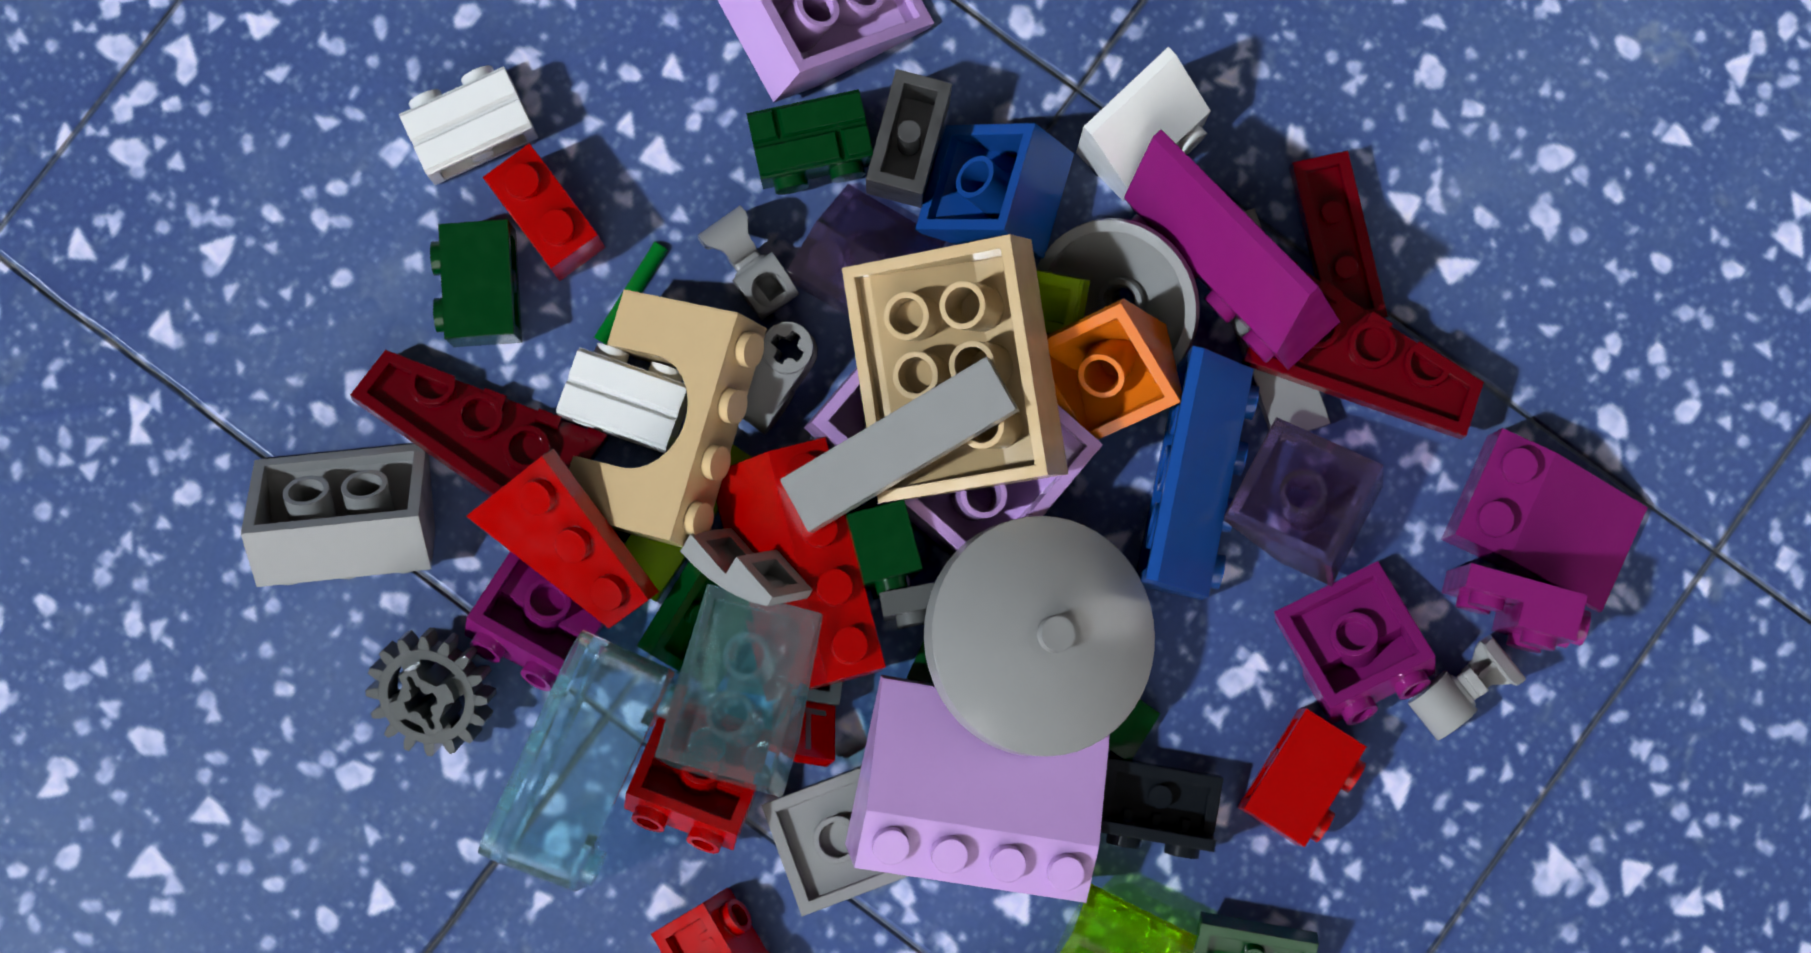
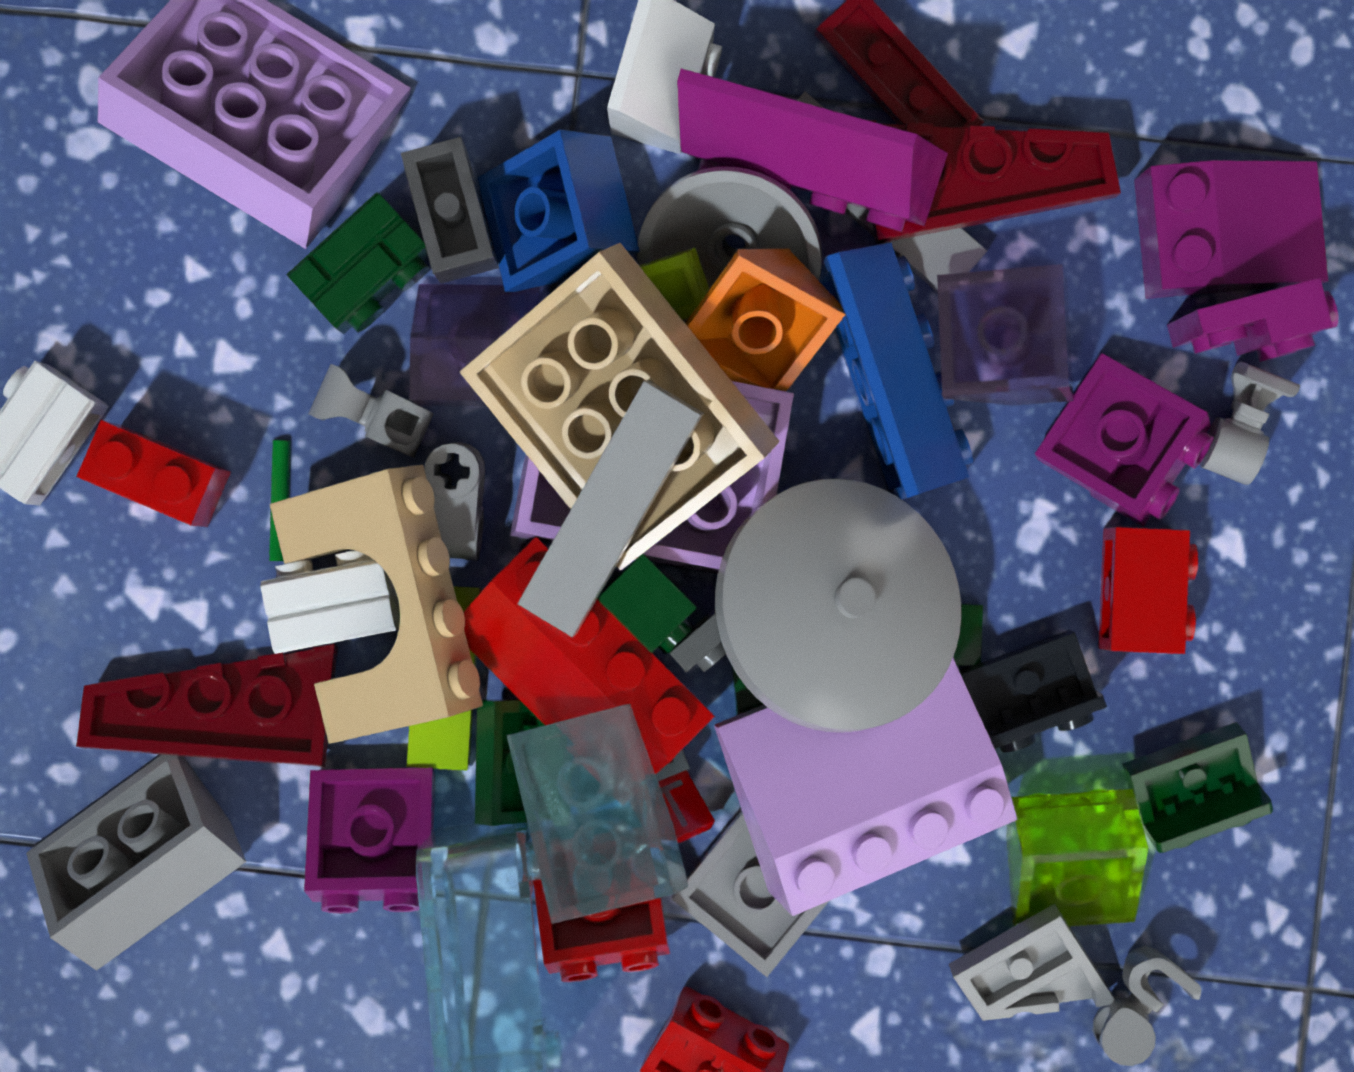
camera: 30 degrees left, 5 degrees up
(430, 692) = (312, 972): dark grey gear -> none
(477, 283) = (132, 574): dark green brick -> none
(566, 540) = (353, 766): red wing -> none
(732, 565) = (524, 705): light grey slope -> none

